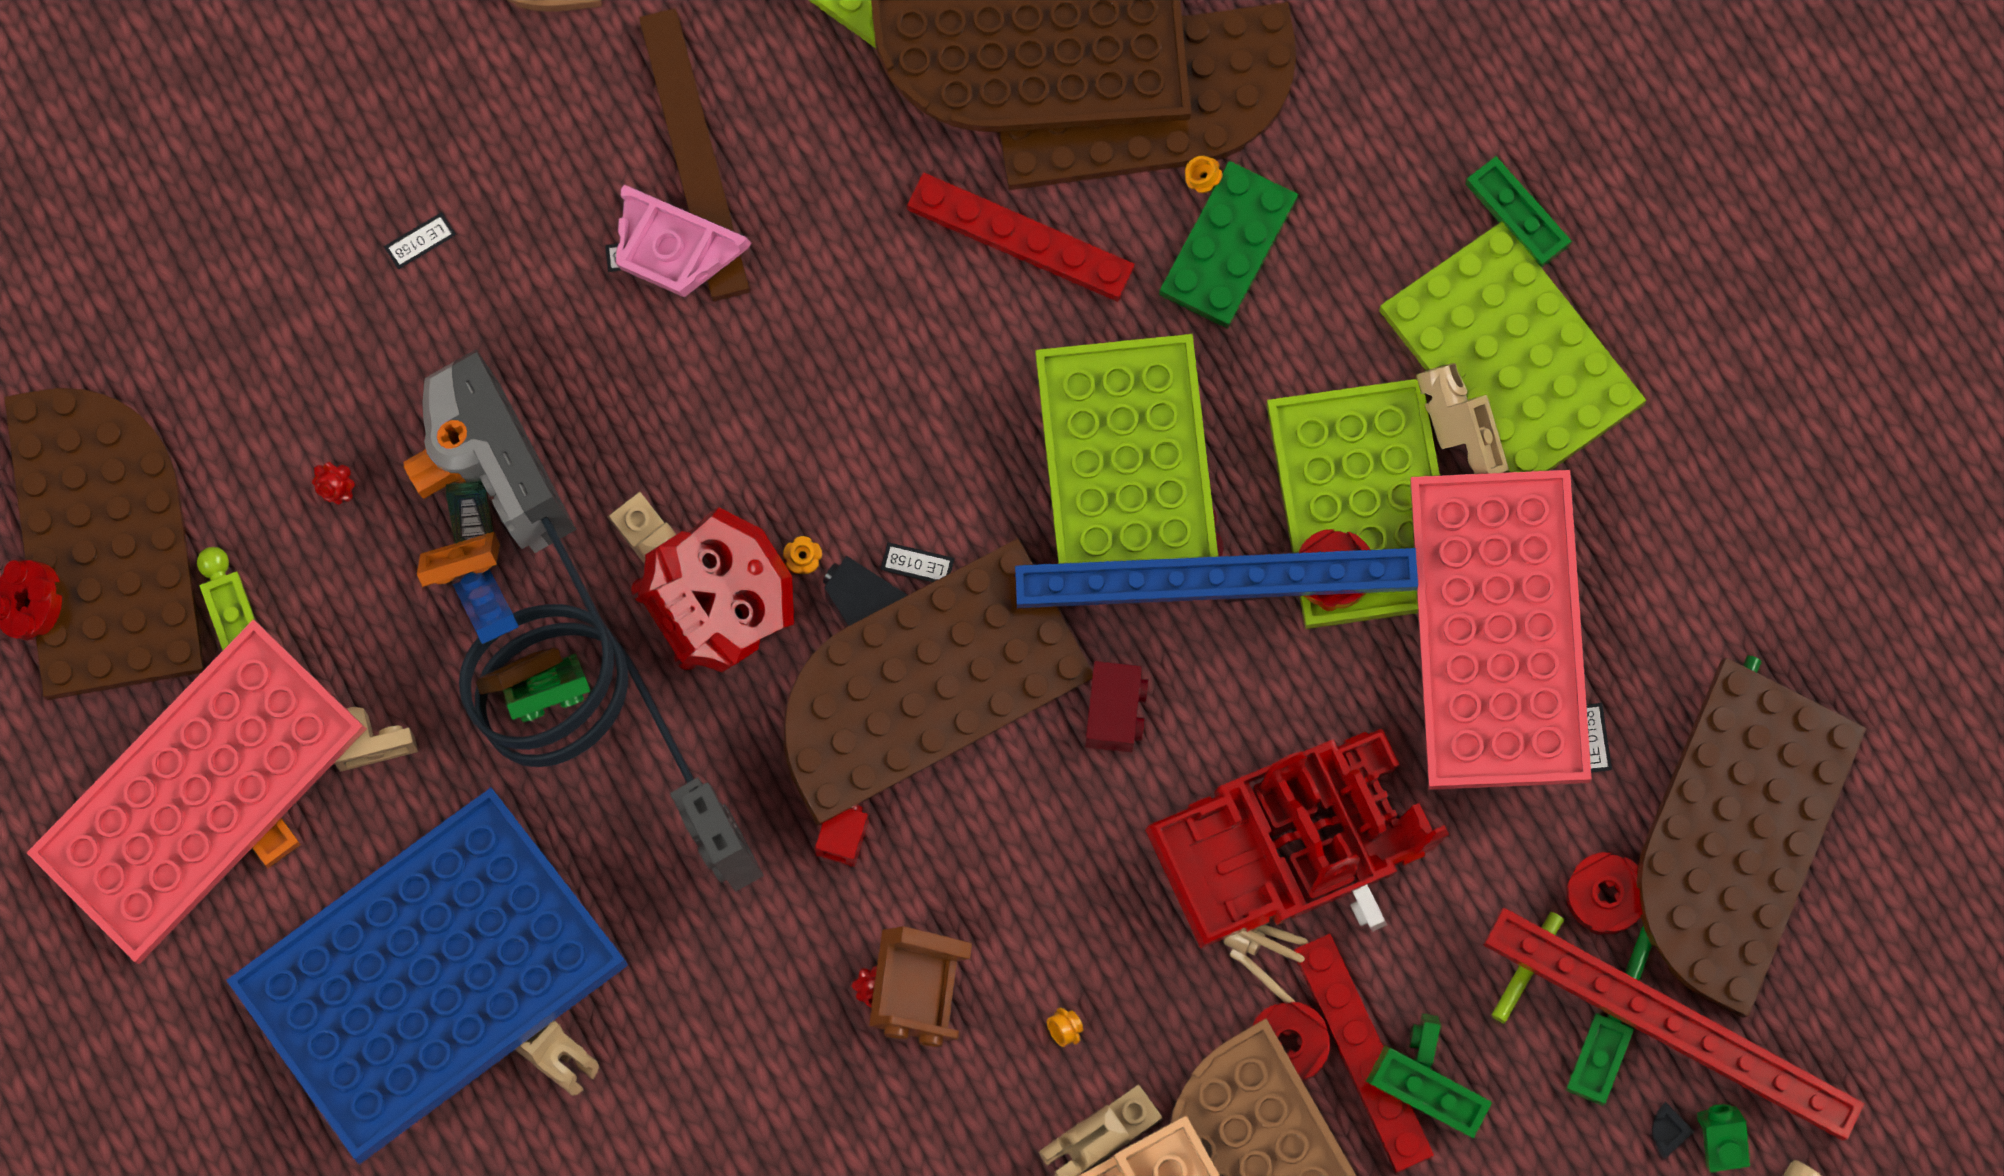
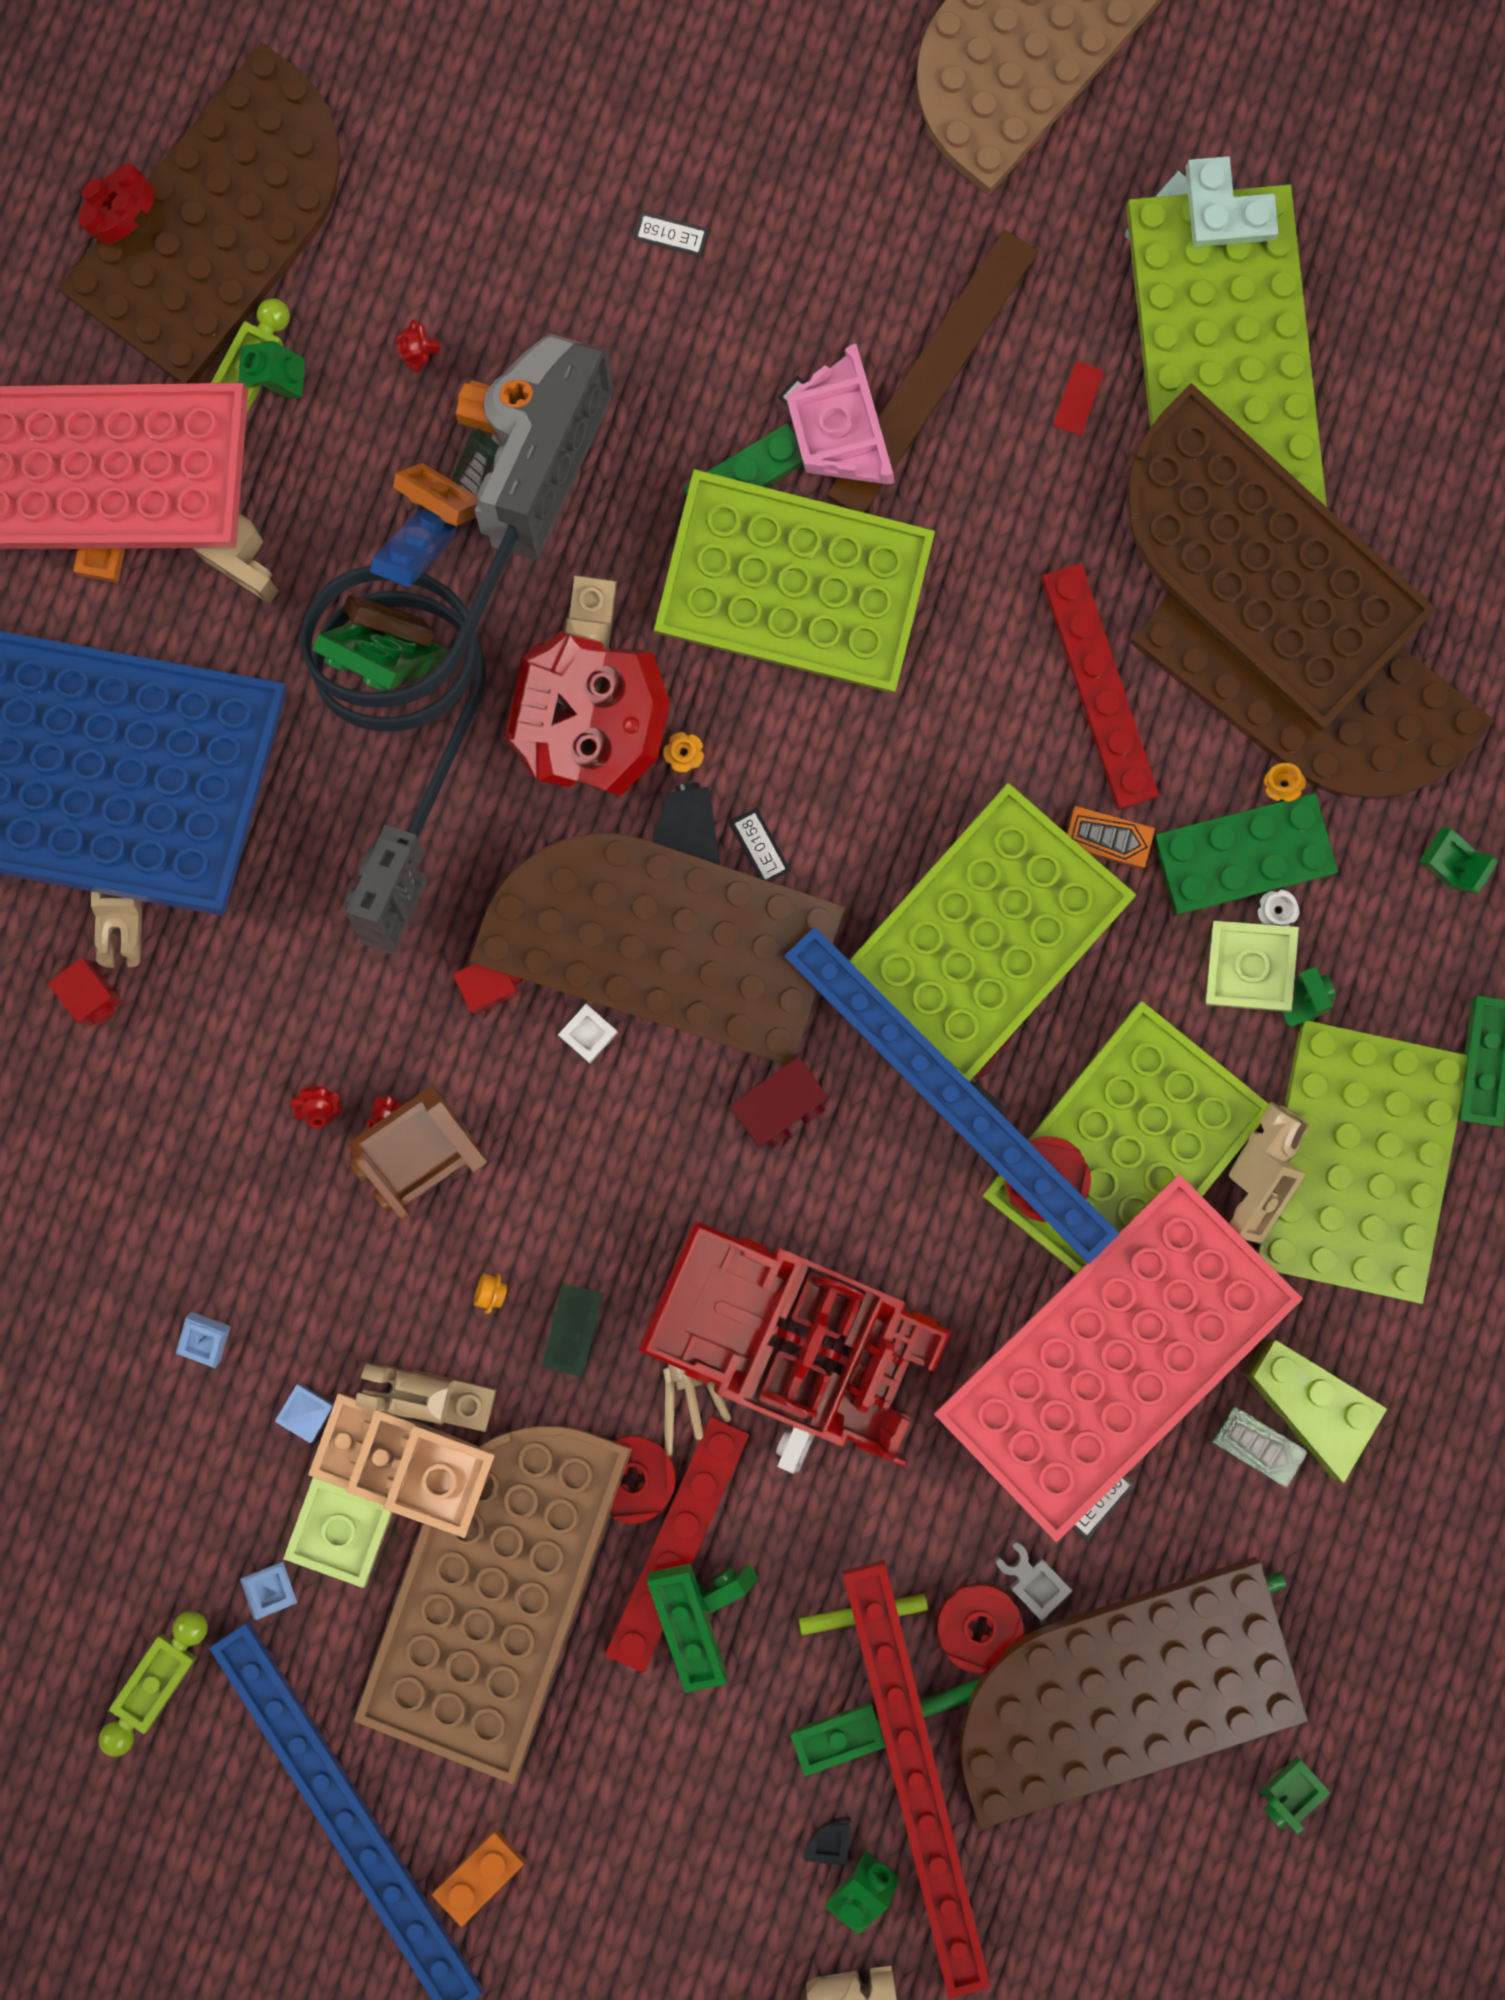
camera: 50 degrees right, 10 degrees up
(252, 594) = (272, 367): none -> green bracket
(583, 1125) = (86, 993): none -> red brick
(642, 341) = (762, 461): none -> green plate
(754, 373) = (794, 581): none -> lime plate
(803, 73) = (1078, 398): none -> red sticker
(818, 1032) = (316, 1106): none -> red plant
(942, 796) = (588, 1033): none -> white plate
(1135, 320) = (1111, 837): none -> tile
(1144, 991) = (572, 1330): none -> clear green plate
(1287, 246) = (1283, 899): none -> white plate
(1311, 307) = (1252, 966): none -> yellowish green tile
(1363, 111) = (1457, 862): none -> green bracket
(1365, 290) = (1310, 997): none -> green bracket
(1612, 827) = (1036, 1583): none -> light grey plate
(1648, 595) = (1259, 1446): none -> tile
(1652, 529) = (1316, 1405): none -> lime wedge
(1908, 781) = (1293, 1795): none -> green bracket

